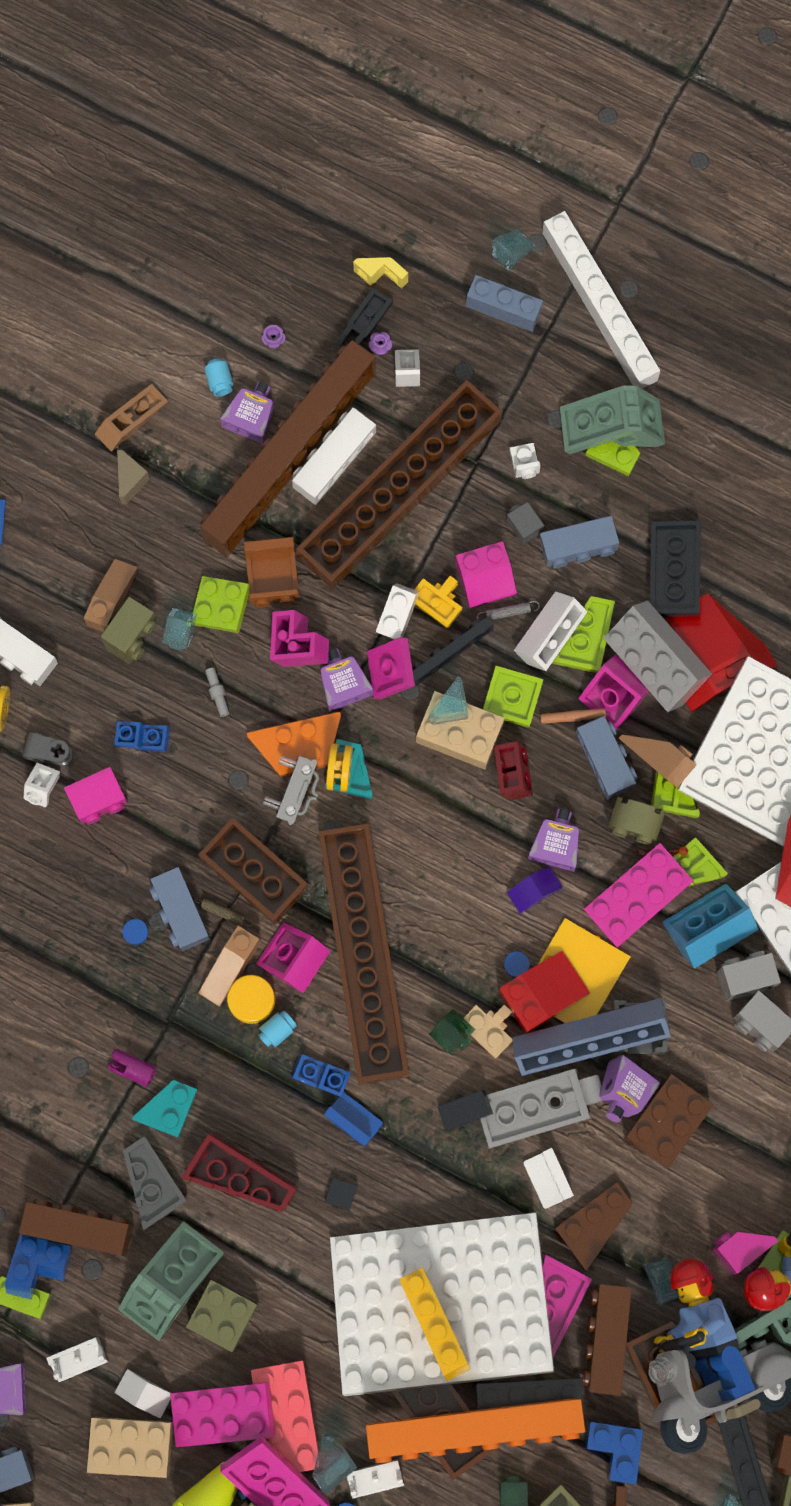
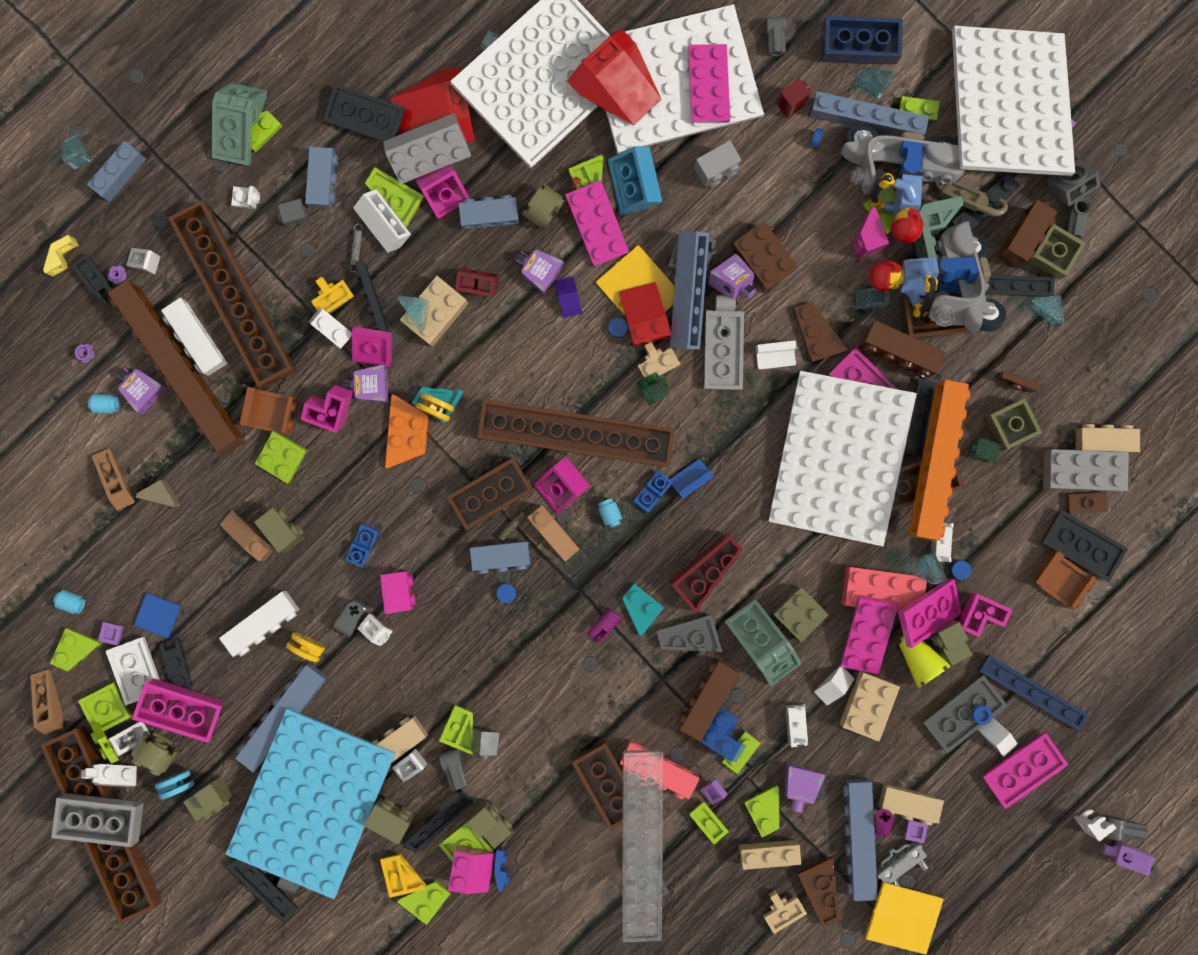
camera: 75 degrees left, 10 degrees up
(179, 629) = (290, 493): clear light blue brick -> none
(217, 692) = (347, 479): light grey bar -> none
(251, 999) = (582, 524): yellow head -> none
(296, 789) = (439, 444): light grey piece -> none
(341, 1194) = (740, 504): black tile -> none
(435, 1324) = (858, 465): yellow brick -> none
(465, 1110) = (710, 397): black tile -> none
(485, 574) = (323, 254): dark pink slope -> none
(513, 696) = (421, 264): lime plate -> none
(575, 715) = (450, 226): nougat piece -> none
(600, 301) = (138, 99): white brick -> none
(622, 1443) = (976, 364): blue brick -> none
(663, 756) = (504, 169): medium nougat slope -> none
(670, 800) = (525, 177): lime wing -> none
(748, 976) = (682, 165): light grey brick -> none

